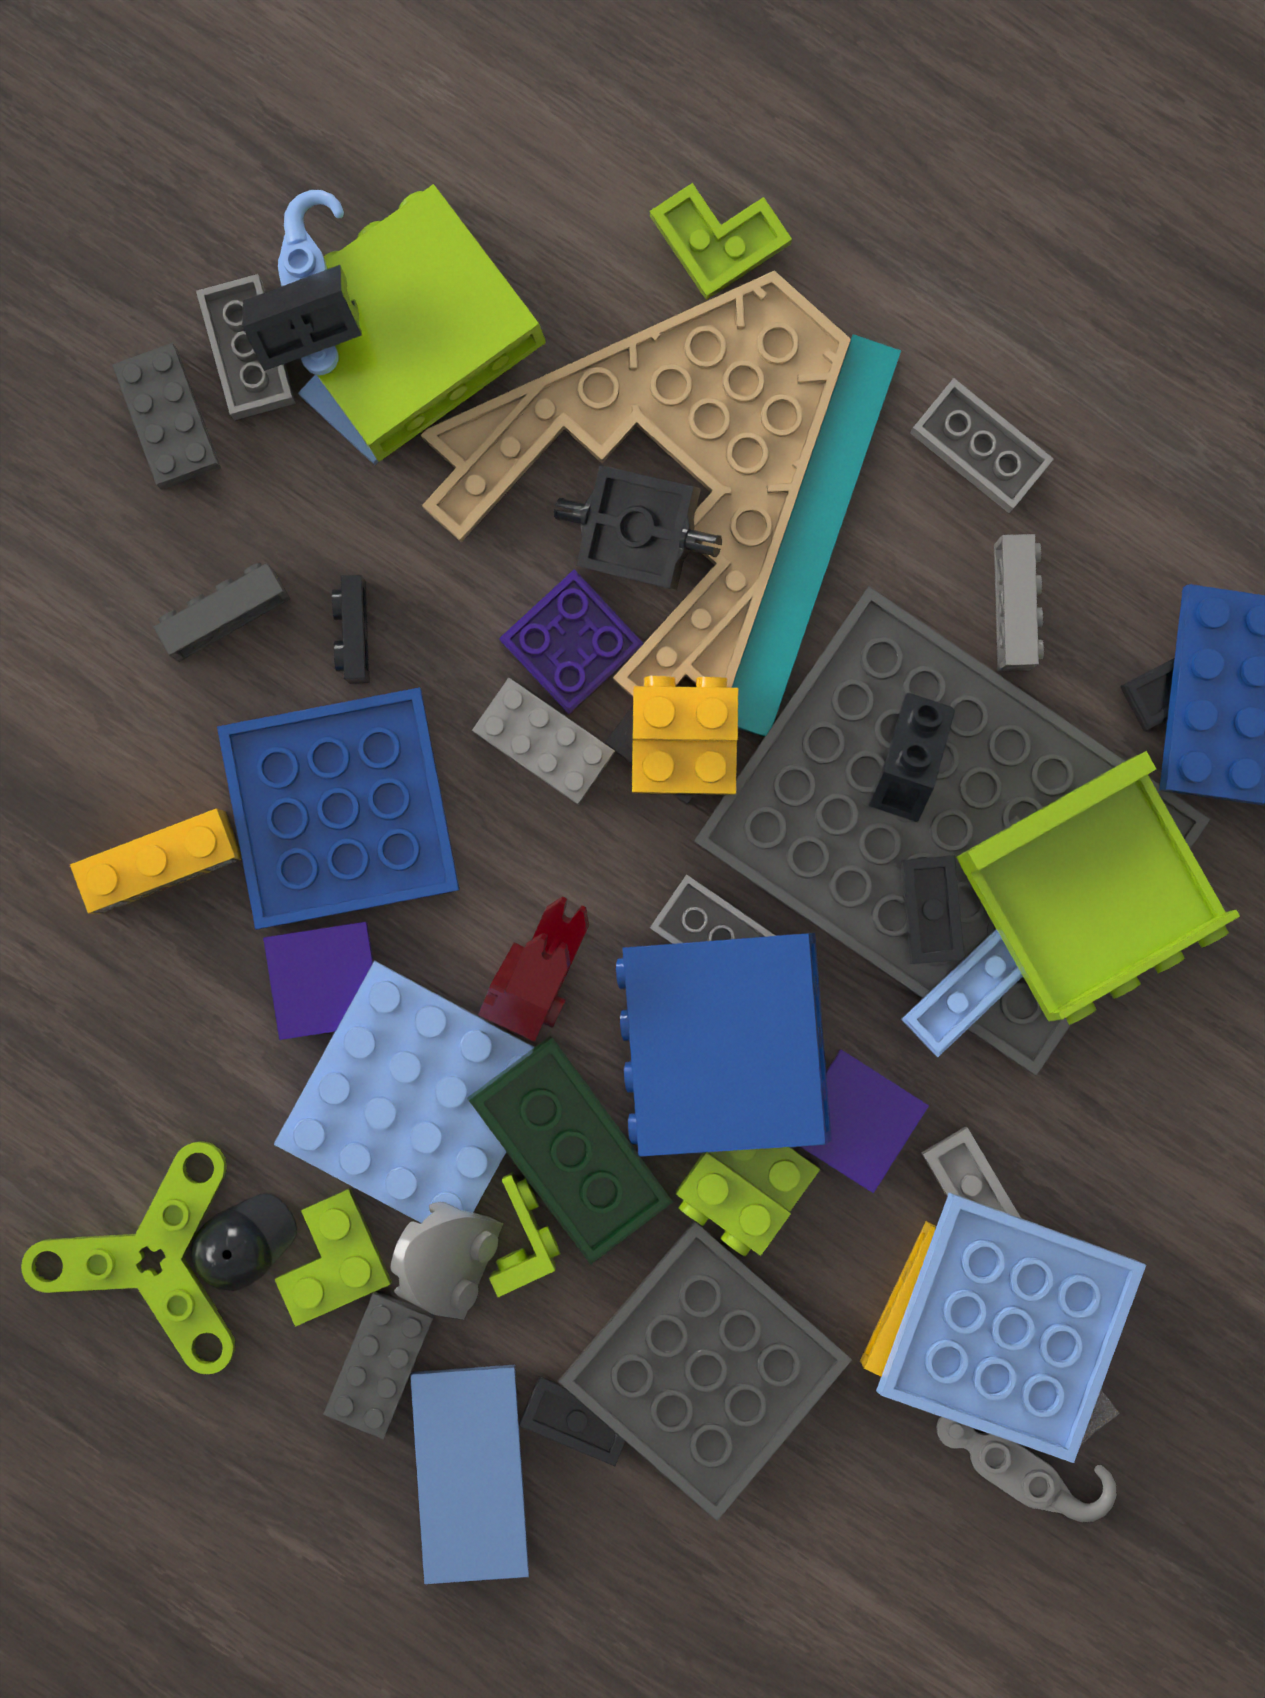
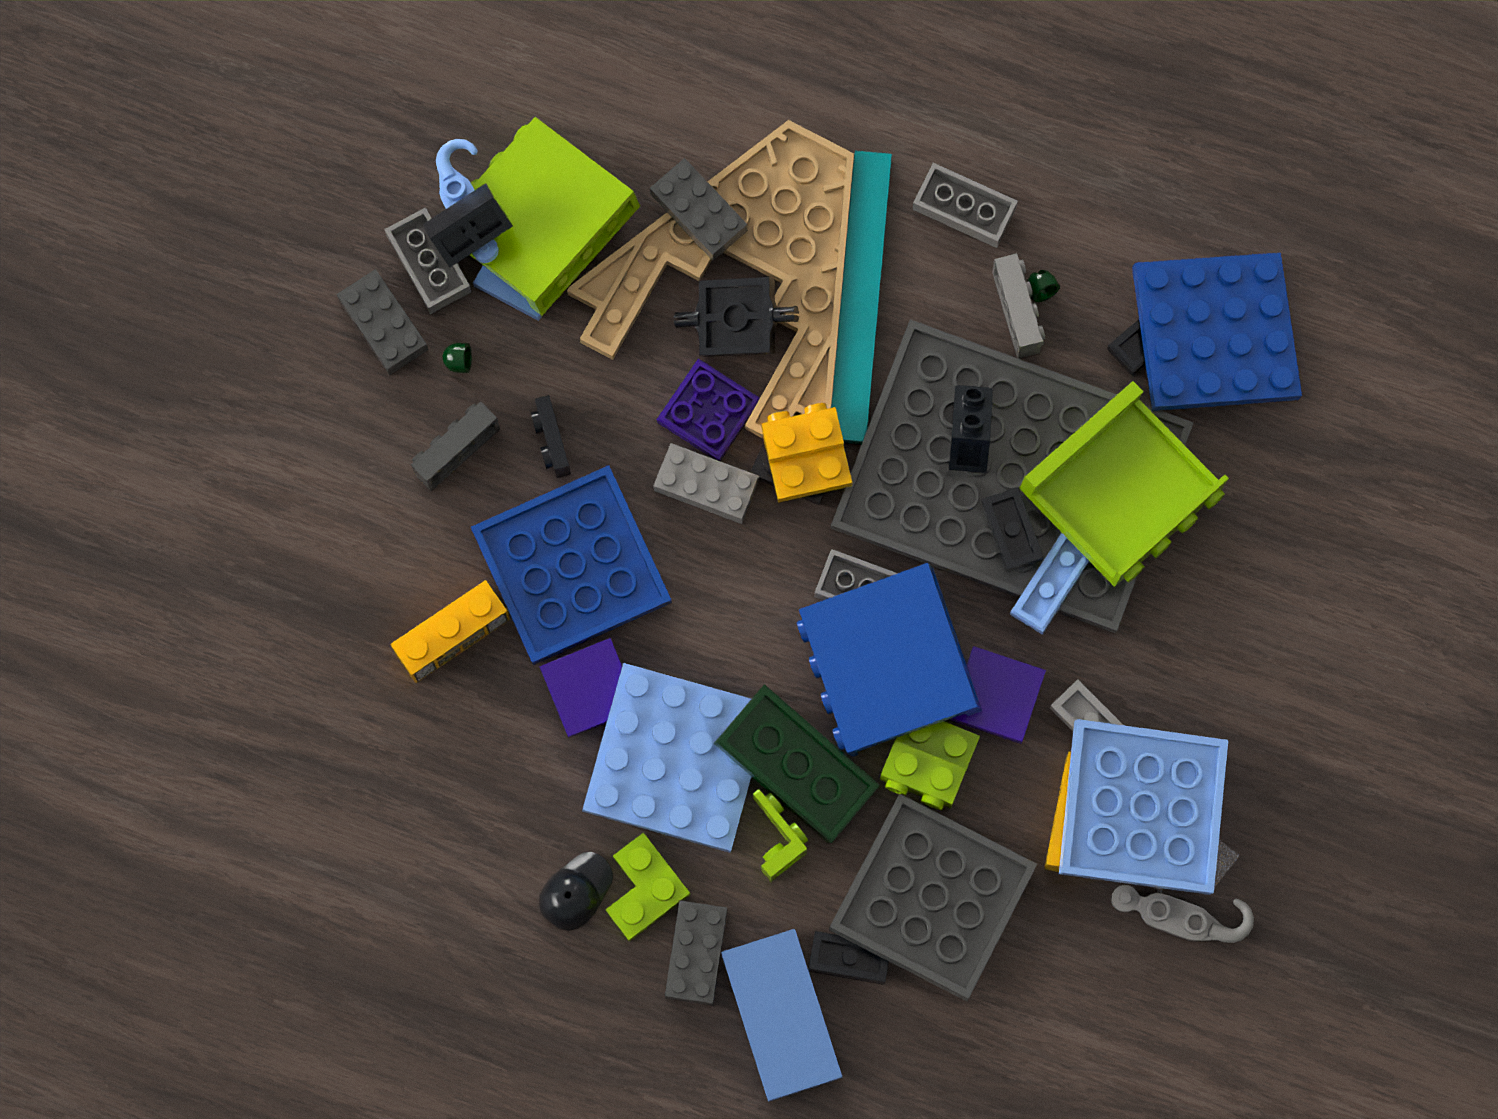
camera: 10 degrees left, 10 degrees down
(115, 1261) = (486, 928): lime piece -> none
(256, 490) = (458, 357): none -> dark green hinge
(444, 1259) = (725, 862): light grey slope -> none
(530, 977) = (737, 653): dark red piece -> none
(622, 366) = (698, 209): none -> dark grey piece
(716, 252) = (743, 118): lime plate -> none
(1058, 581) = (1043, 285): none -> dark green hinge

